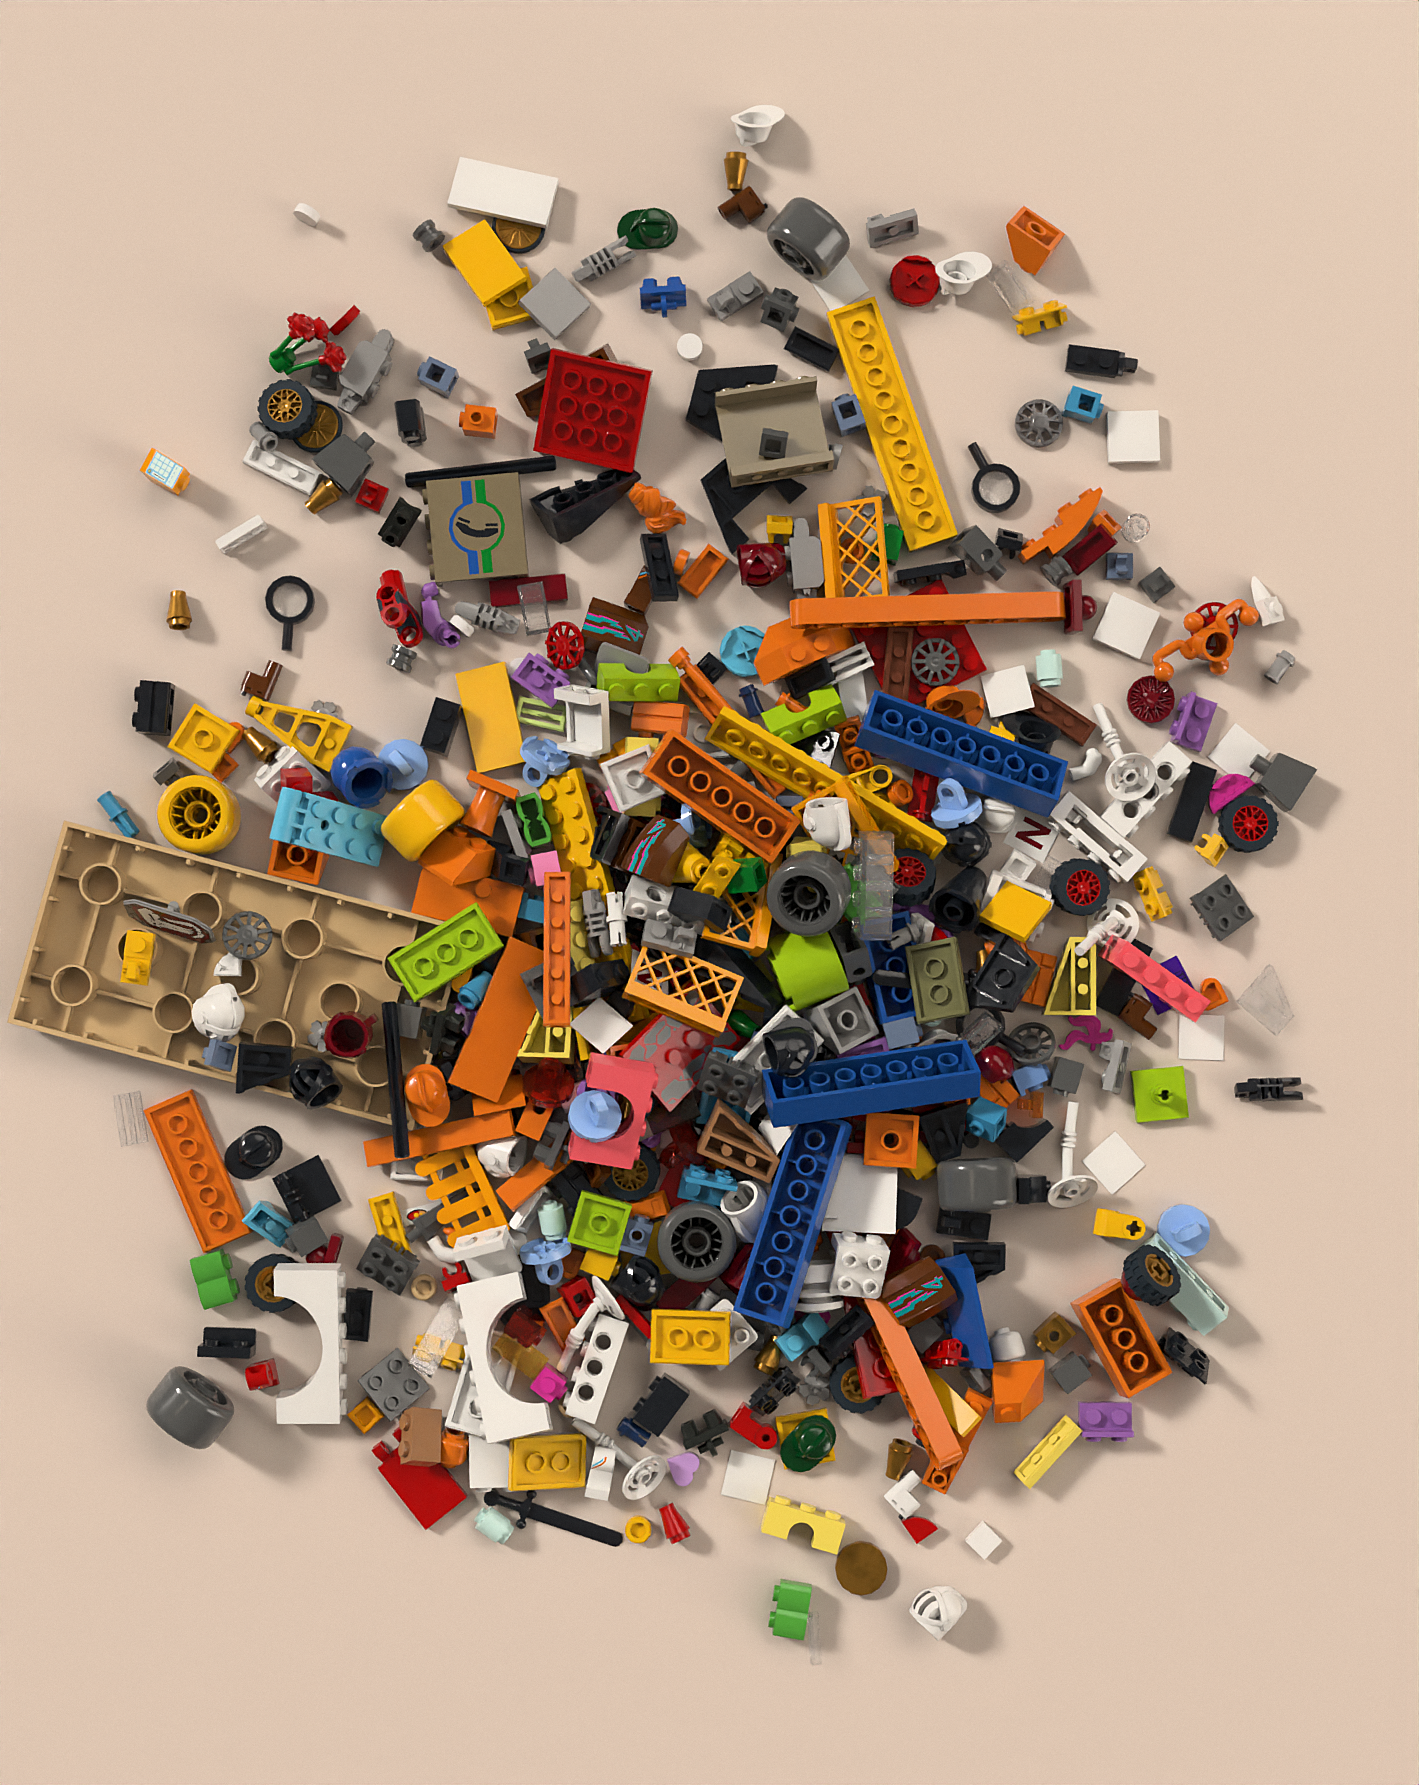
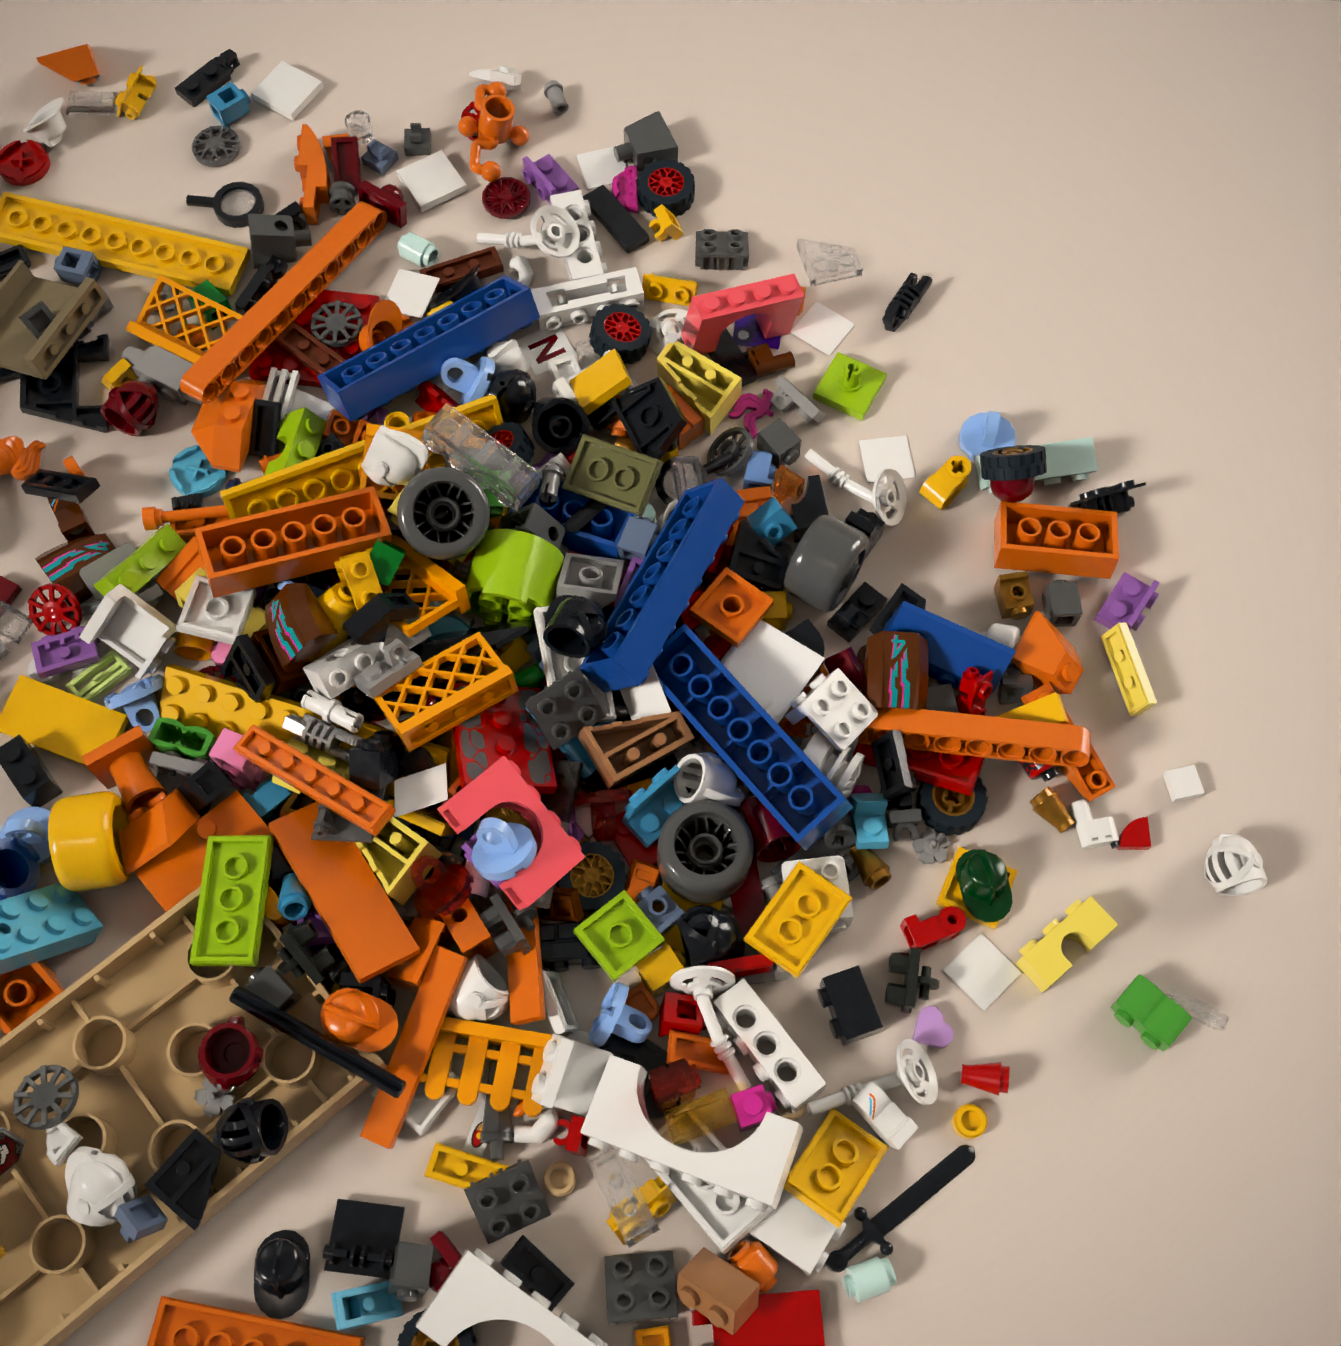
camera: 50 degrees left, 20 degrees down
(552, 1220) = (584, 989): light aqua brick -> none
(632, 1430) = (860, 1055): dark blue pin -> none
(702, 571) = (100, 459): orange tile -> none
(767, 1401) = (906, 872): black hinge -> none
(861, 1568) = (1145, 917): pearl gold tile -> none
(995, 1064) = (732, 476): dark red hair -> none

